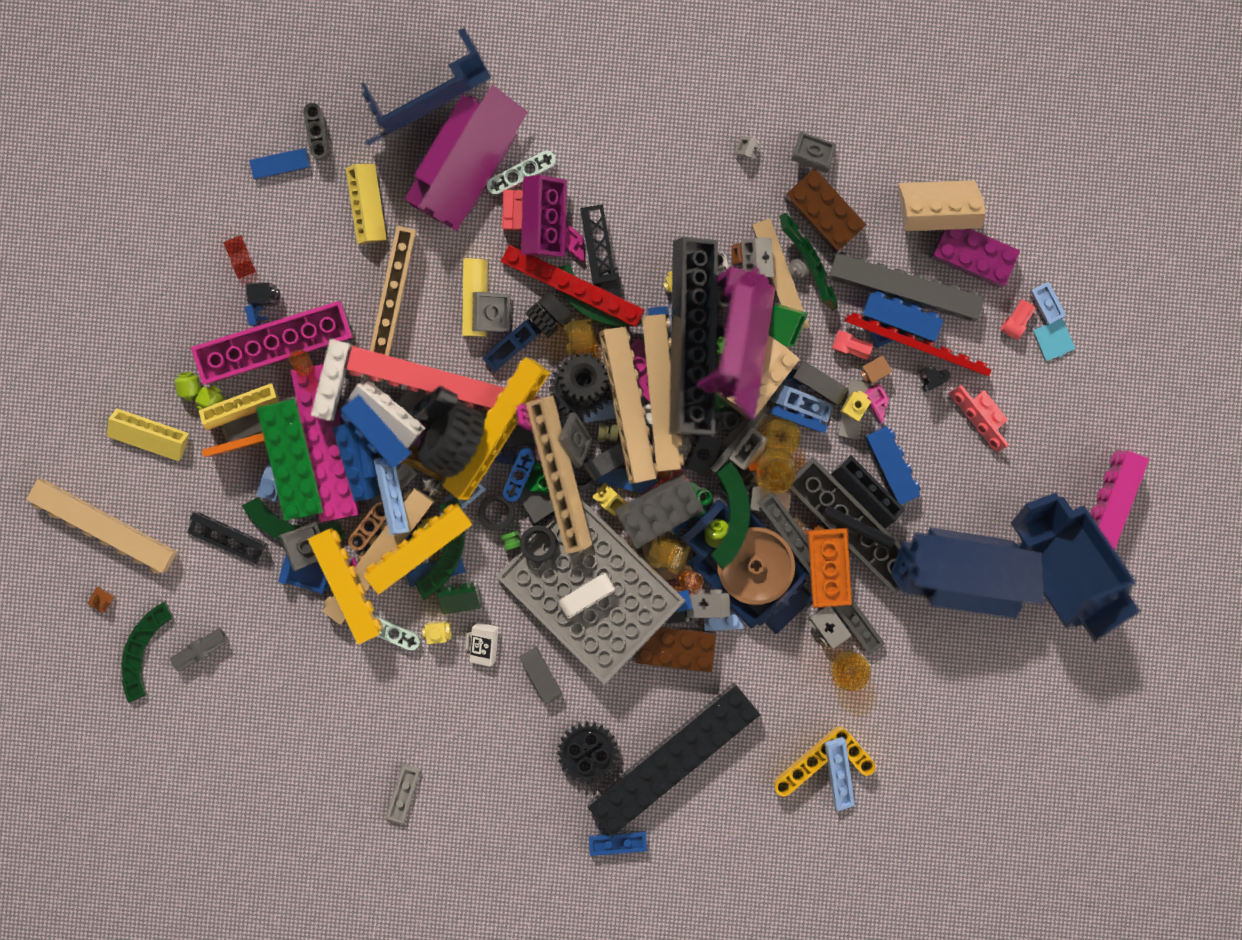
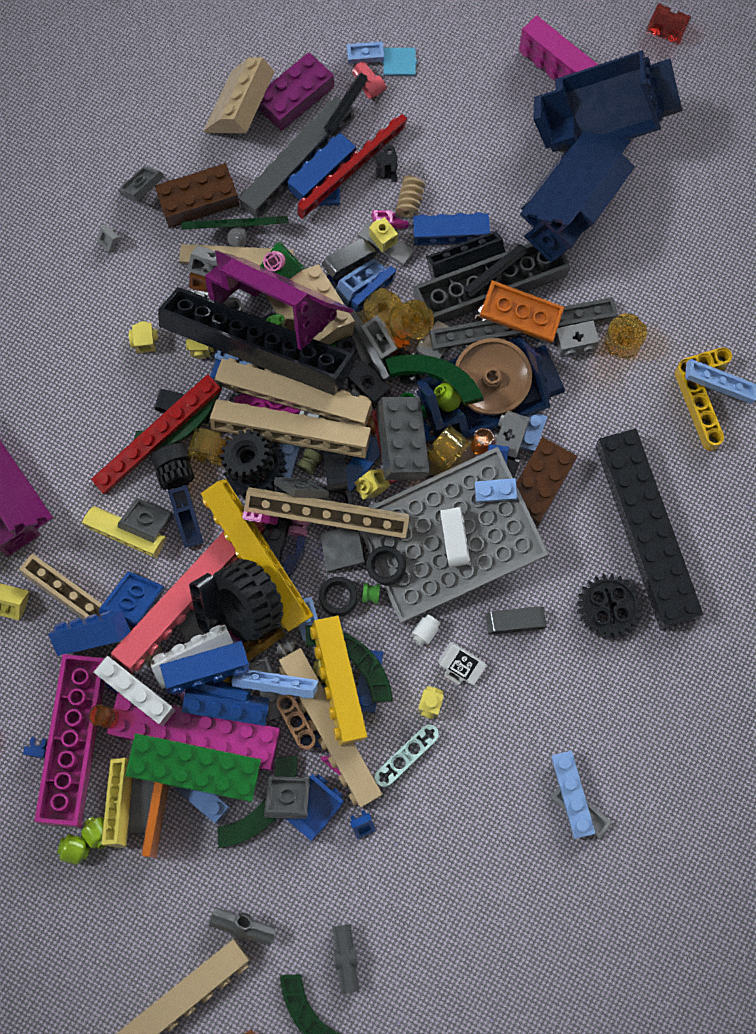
camera: 65 degrees left, 15 degrees down
(147, 434) = (101, 915): light yellow brick -> none
(188, 567) = (253, 929): none -> dark grey piece
(229, 531) = (238, 871): black fence -> none
(262, 294) = (19, 729): black brick -> none
(310, 618) = (363, 825): none -> blue tile
(345, 585) = (344, 768): yellow brick -> none
(366, 315) = (89, 633): none -> blue brick
(411, 783) = (572, 794): none -> light blue plate
(414, 335) = (134, 597): none -> blue tile
(459, 599) = (407, 665): dark green slope -> none
(498, 601) = (426, 630): none -> white brick
(512, 210) = (61, 459): coral brick -> none
(519, 170) = (27, 442): light aqua beam -> none
(519, 460) = (302, 556): blue beam -> none
(537, 480) = (322, 539): green plate -> none
(544, 216) = (79, 432): magenta brick -> none
(574, 243) = (117, 422): dark pink tile -> none
(590, 244) = (127, 405): black fence -> none
(620, 843) = (713, 612): blue plate -> none
(642, 615) = (496, 490): none -> light blue plate
(662, 227) = (143, 337): none -> light yellow brick
(785, 319) = (277, 260): none -> bright pink wheel
(847, 343) = (324, 224): coral piece -> none
(875, 370) = (358, 209): medium nougat brick -> none
(909, 413) = (410, 197): none -> tan piece
(978, 312) = (345, 103): none -> black axle
(983, 415) = (440, 140): coral bracket -> none
(1203, 587) = (668, 24): none -> clear red brick

